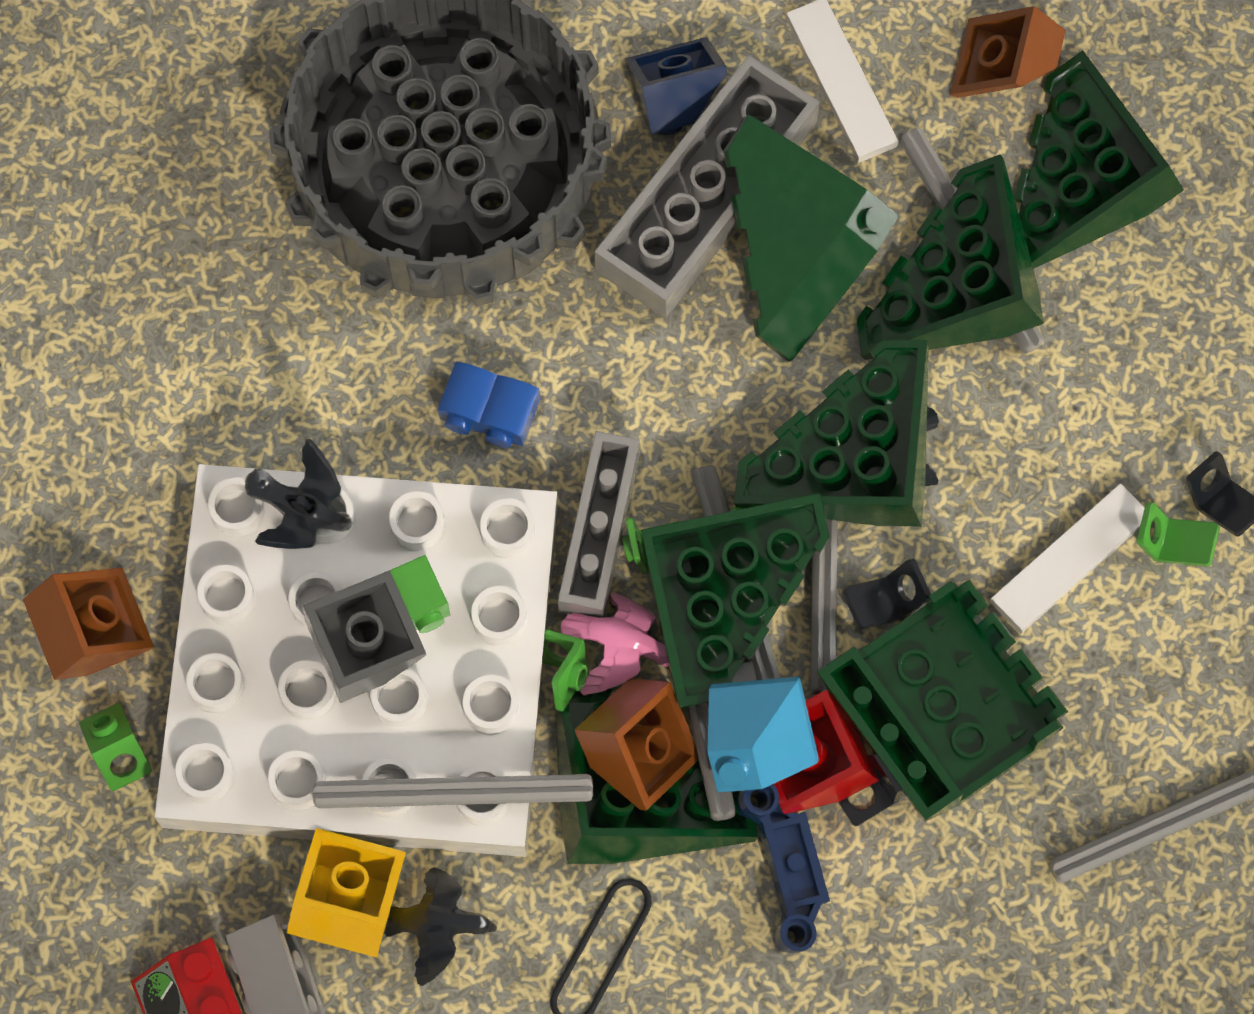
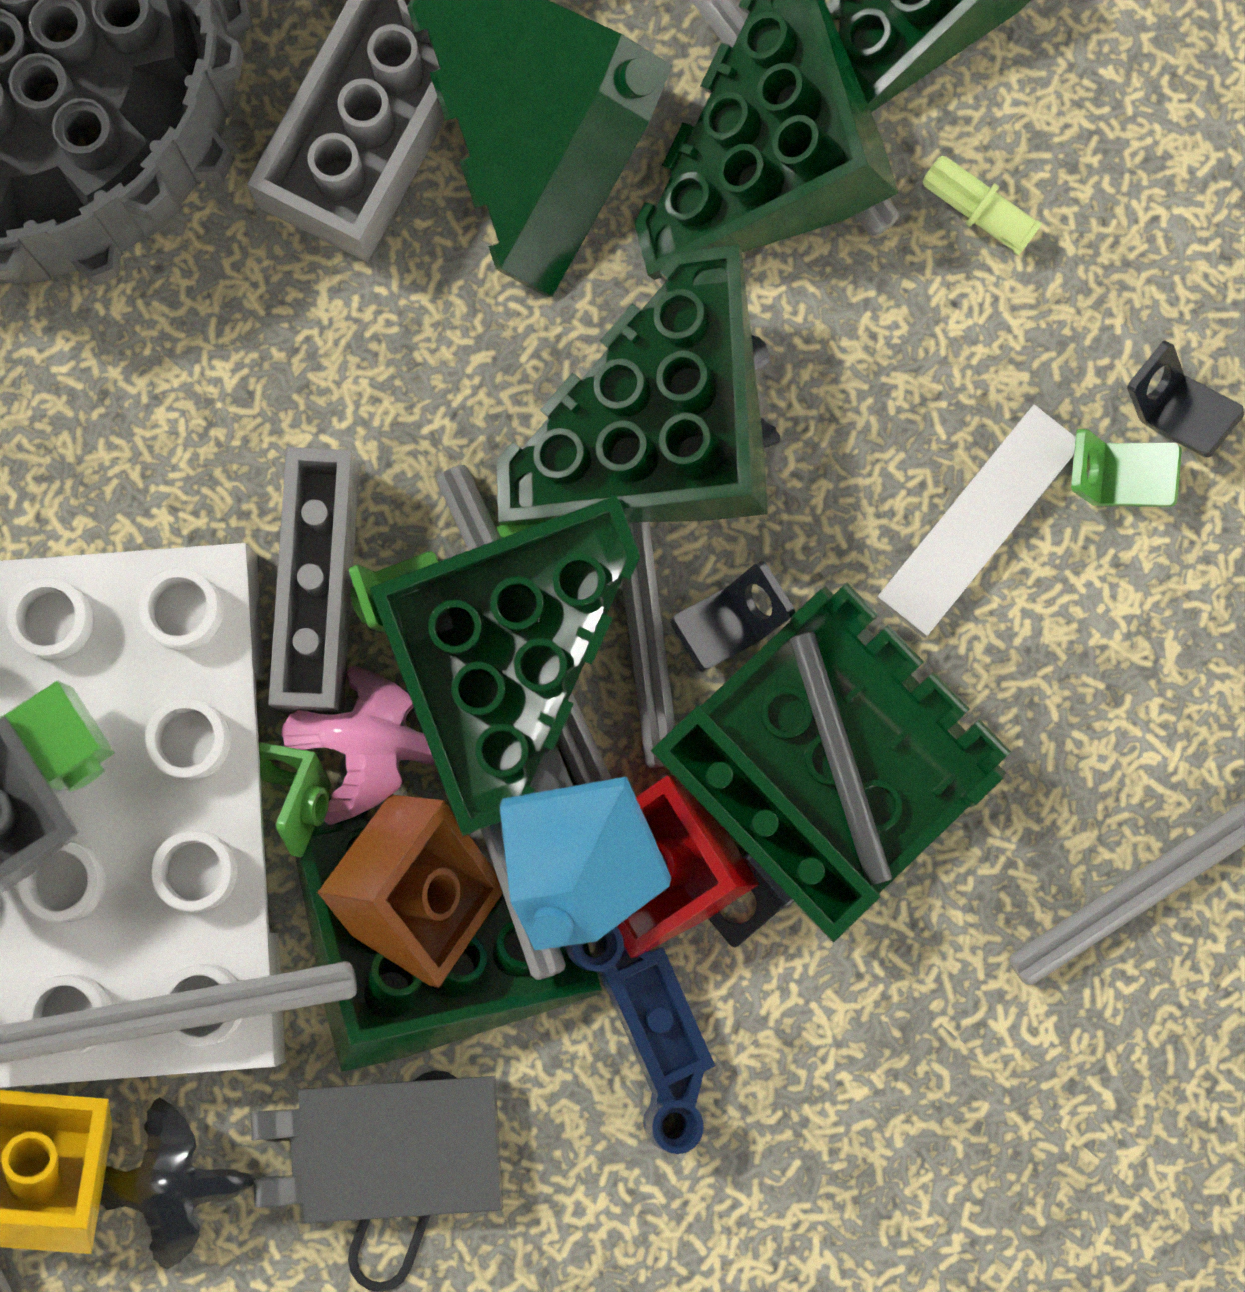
camera: 10 degrees left, 10 degrees up
(488, 405) = (134, 425): blue brick -> none
(590, 924) = (387, 1150): none -> dark grey tile
(948, 701) = (840, 758): none -> dark grey bar
(1102, 341) = (981, 204): none -> yellowish green axle

